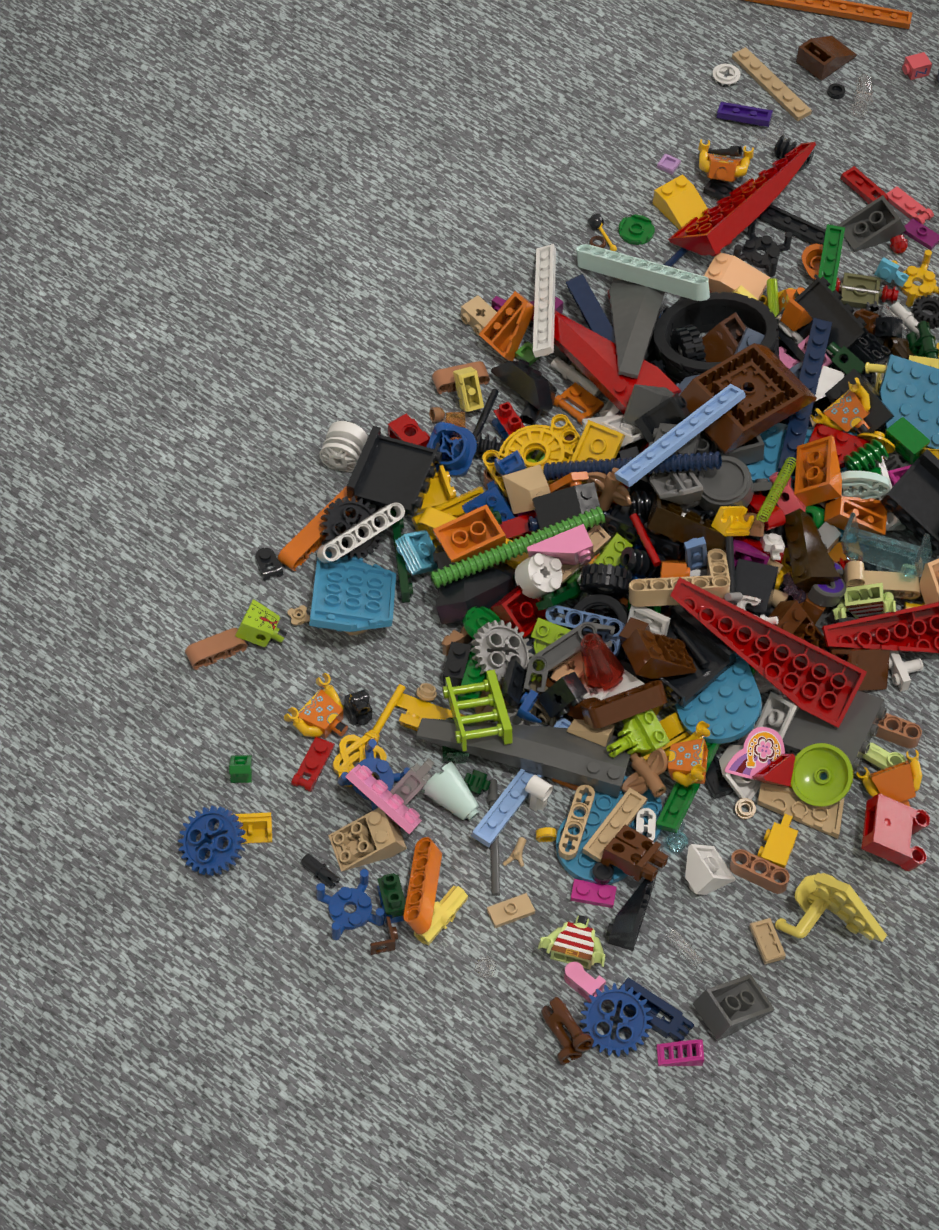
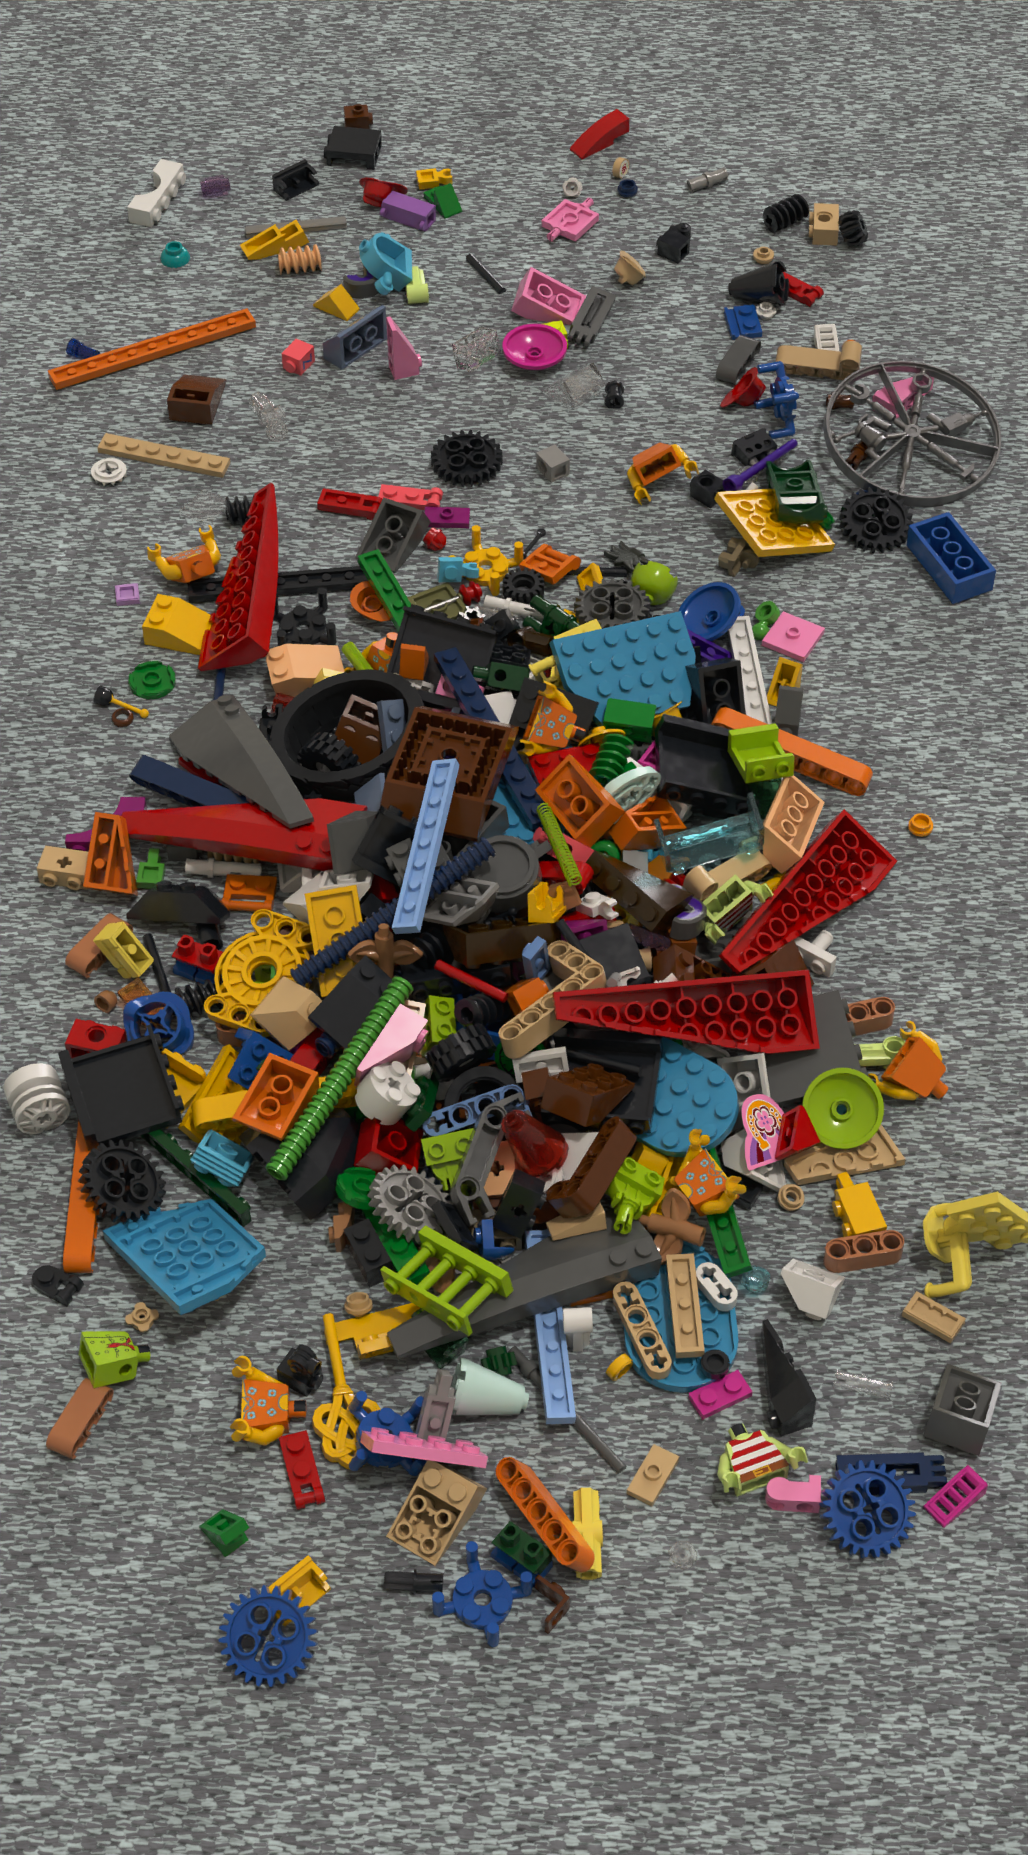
camera: 35 degrees left, 5 degrees down
(367, 526) = (135, 1185): white beam -> none
(509, 464) = (248, 997): blue plate -> none
(517, 852) = (605, 1408): tan bar -> none
(544, 301) = (131, 806): white plate -> none
(555, 1019) = (807, 1560): reddish brown piece -> none
(569, 480) = (338, 970): orange plate -> none
(634, 854) = (736, 1320): reddish brown hips -> none
(643, 272) = (211, 713): light aqua beam -> none
(733, 151) = (191, 540): black bar -> none
(744, 114) = (164, 499): dark purple plate -> none
(836, 91) = (237, 426): black tile -> none
(889, 831) = (954, 1120): piece -> none

